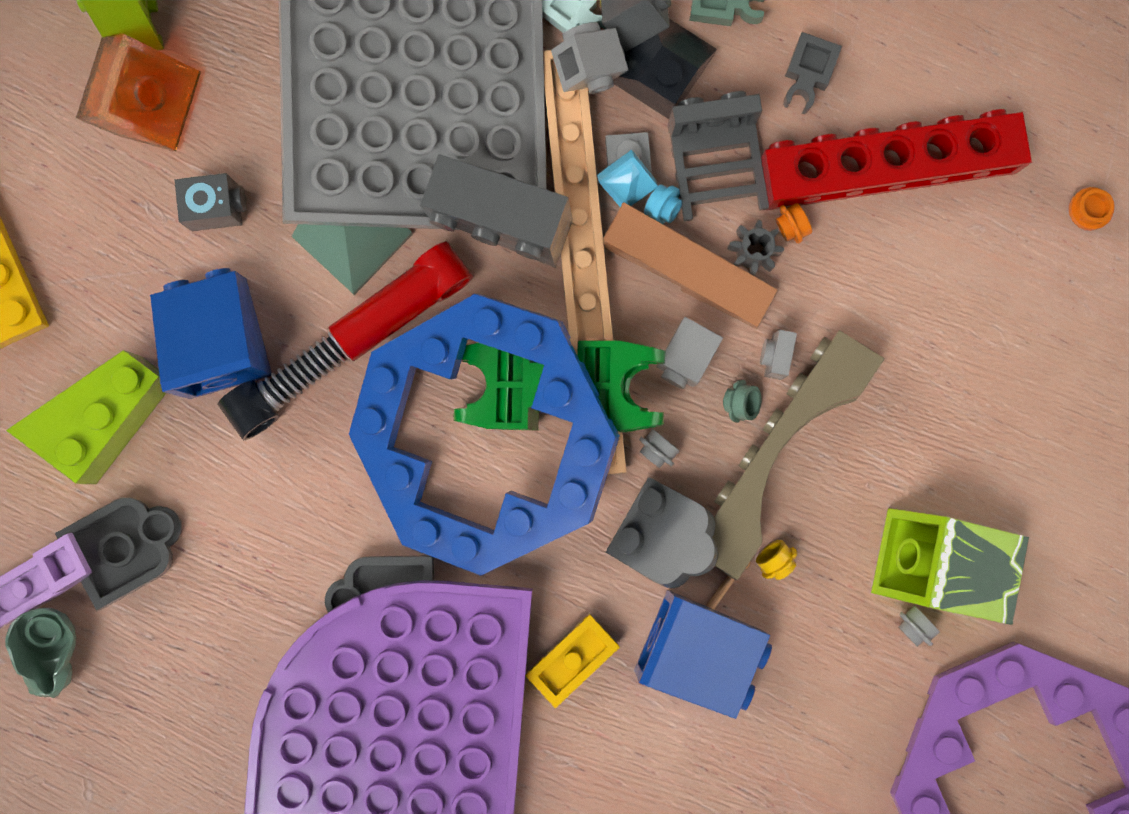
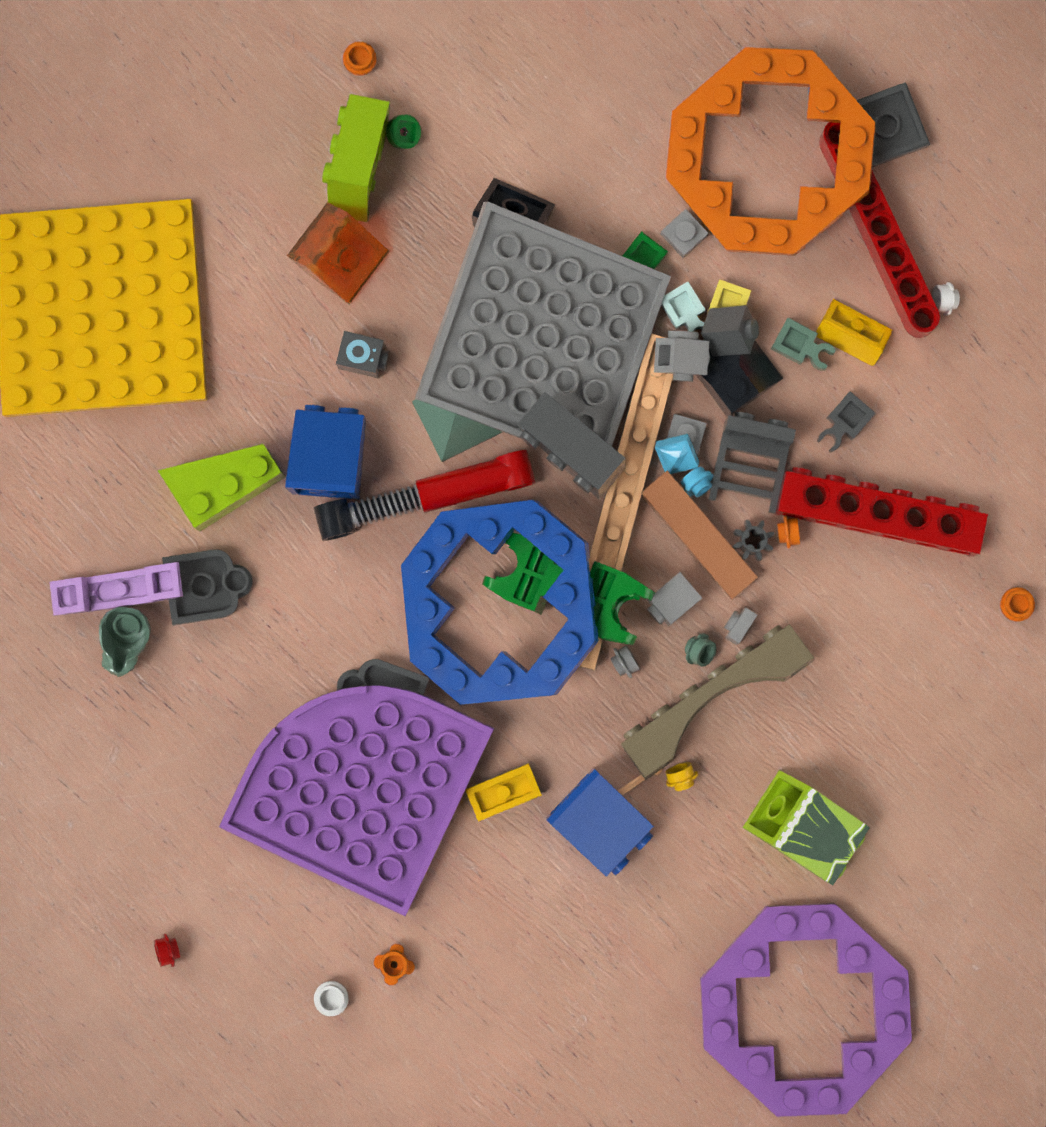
camera: 20 degrees right, 0 degrees up
(666, 536) = (605, 727): dark grey plate -> none
(918, 627) = (766, 864): light grey plate -> none

